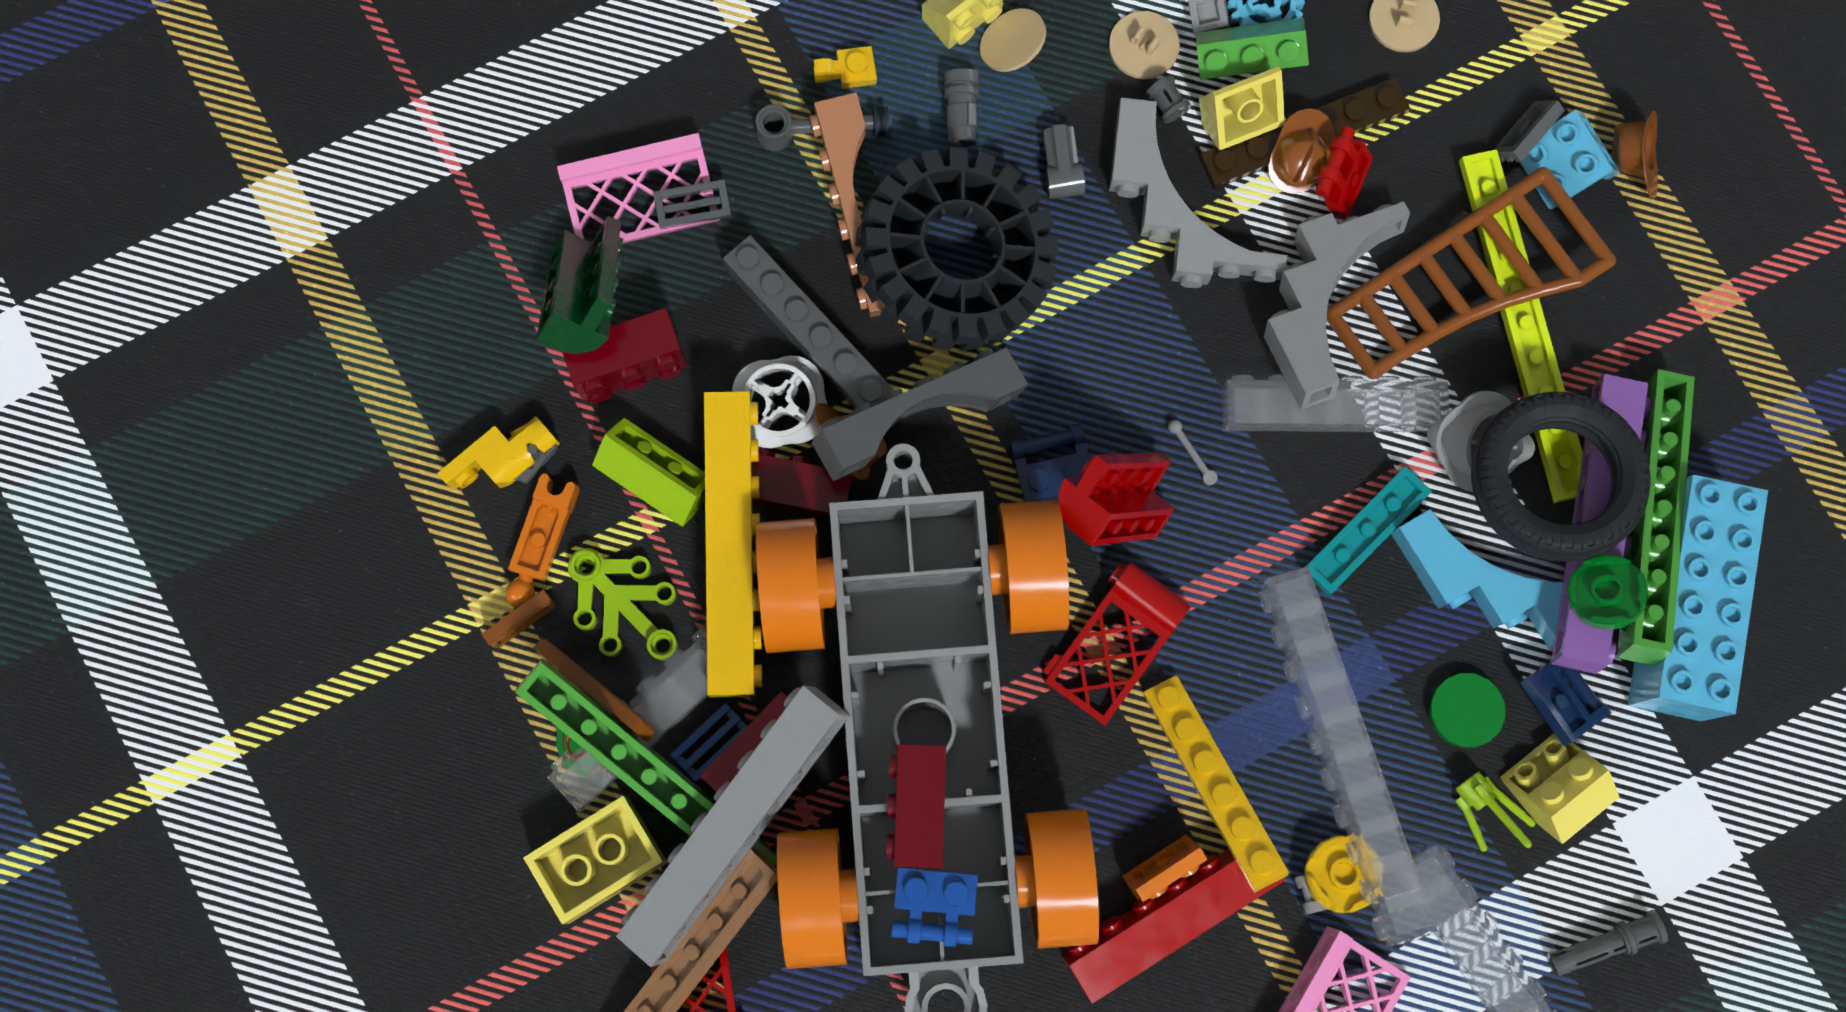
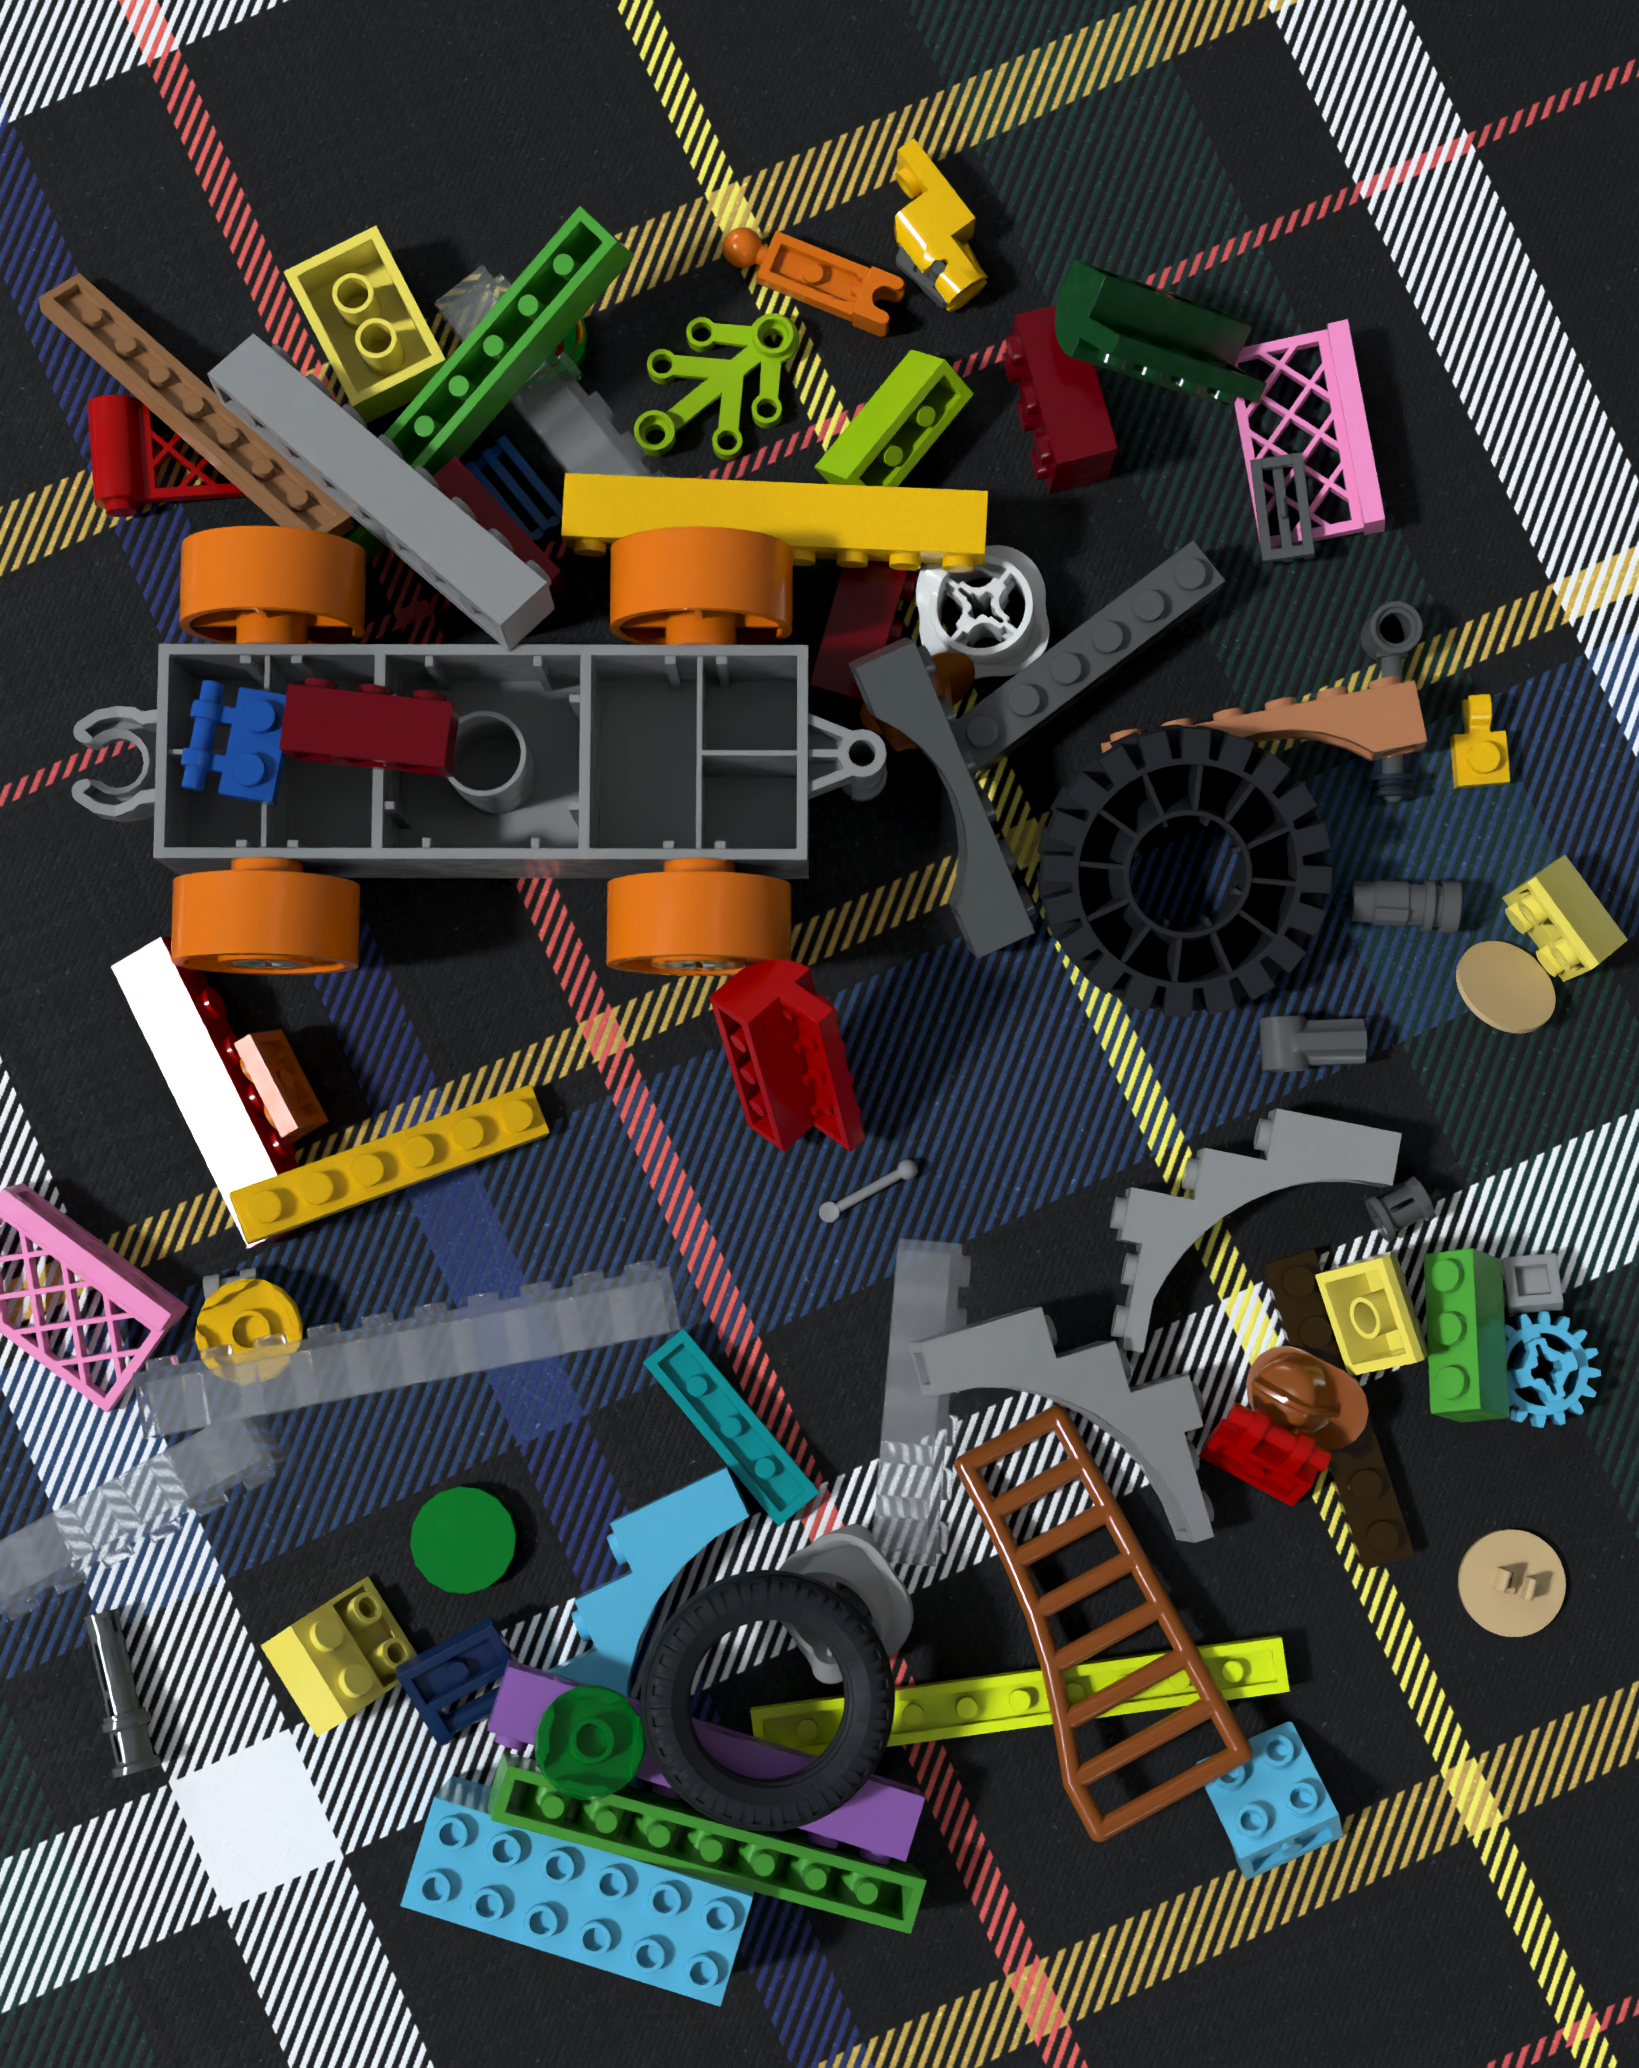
camera: 100 degrees right, 5 degrees up
(519, 619) = (705, 244): dark orange tile -> none
(595, 689) = (592, 331): dark orange tile -> none
(1043, 479) = (847, 984): dark blue plate -> none
(1144, 45) = (1491, 1185): tan piece -> none
(1147, 603) = (657, 1095): red piece -> none
(1479, 792) = (346, 1537): lime plant -> none
(1529, 130) = (1316, 1744): dark grey tile -> none
(1636, 150) = (1270, 1908): dark orange piece -> none

